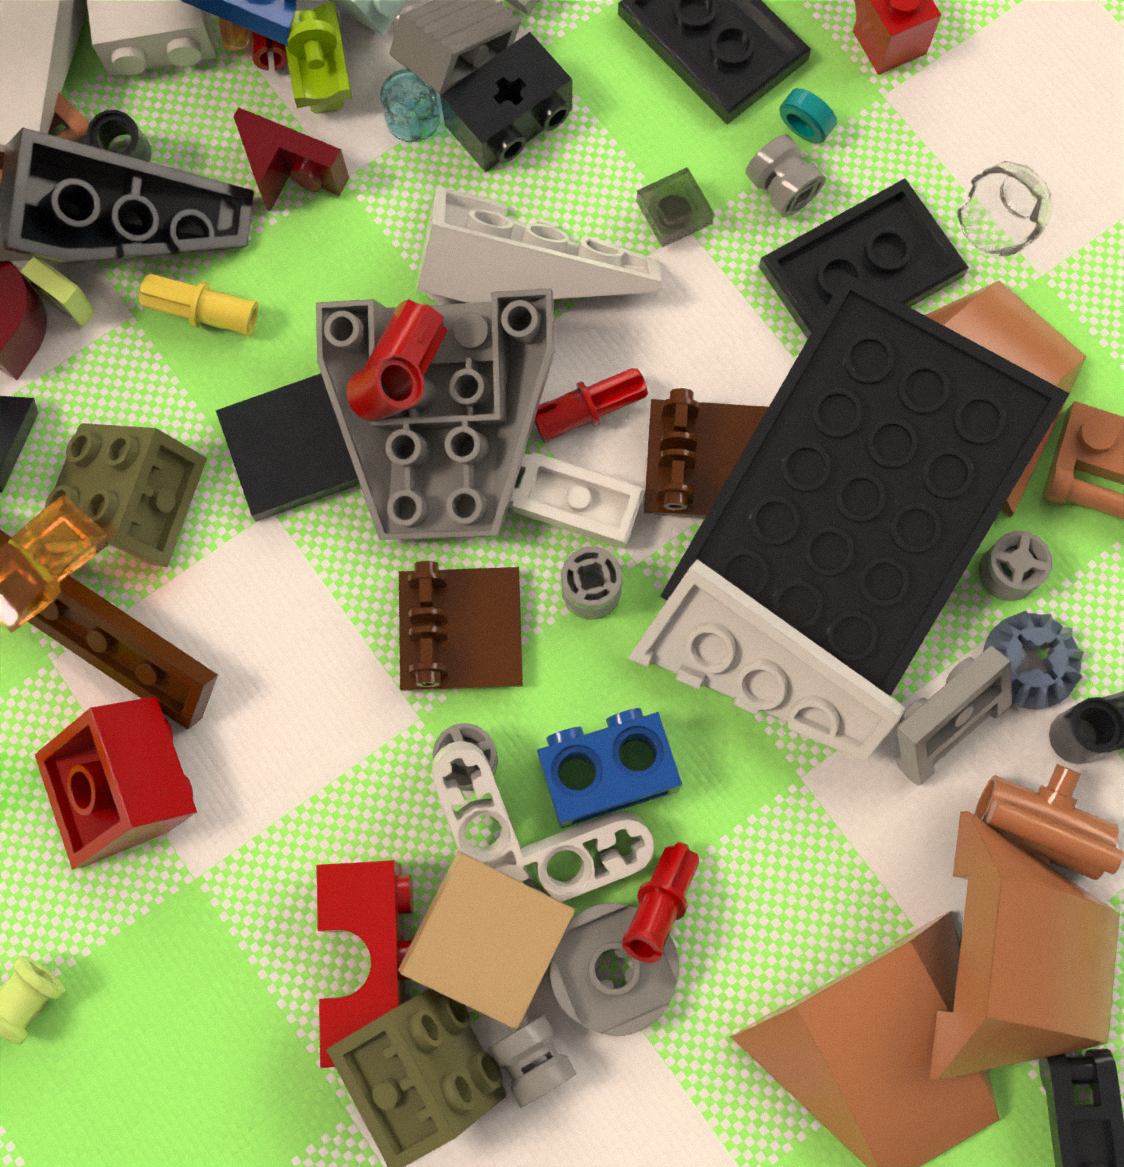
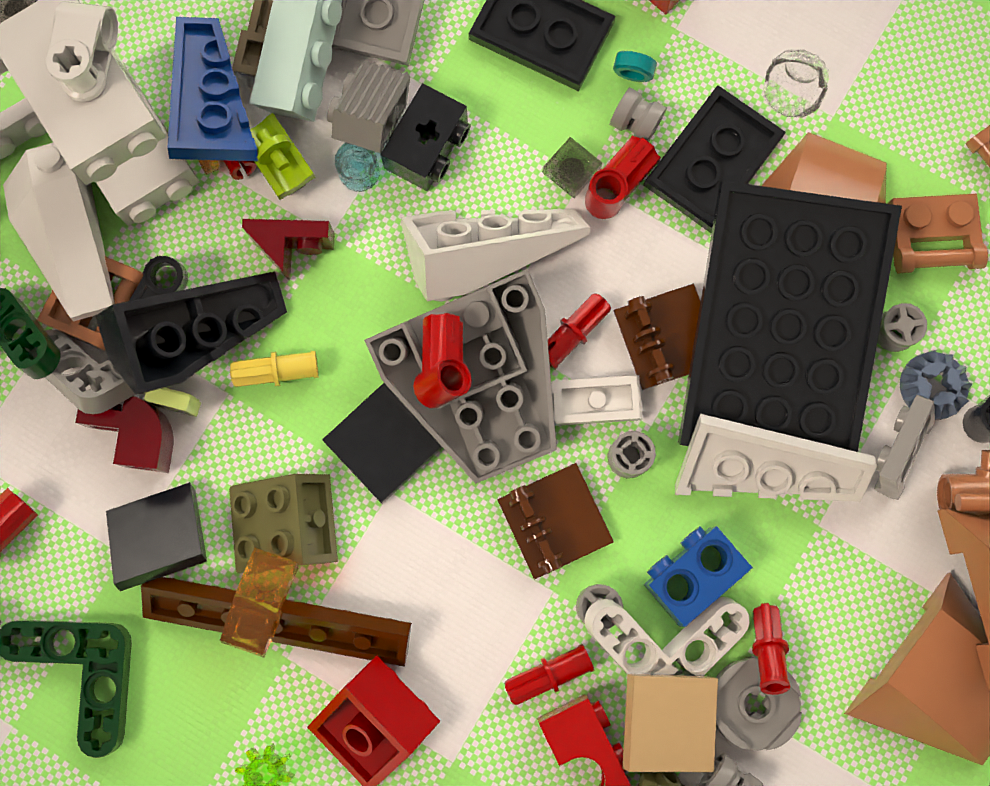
camera: 25 degrees left, 5 degrees up
(363, 817) = (548, 675): none -> red axle
(730, 239) = (621, 177): none -> red piece

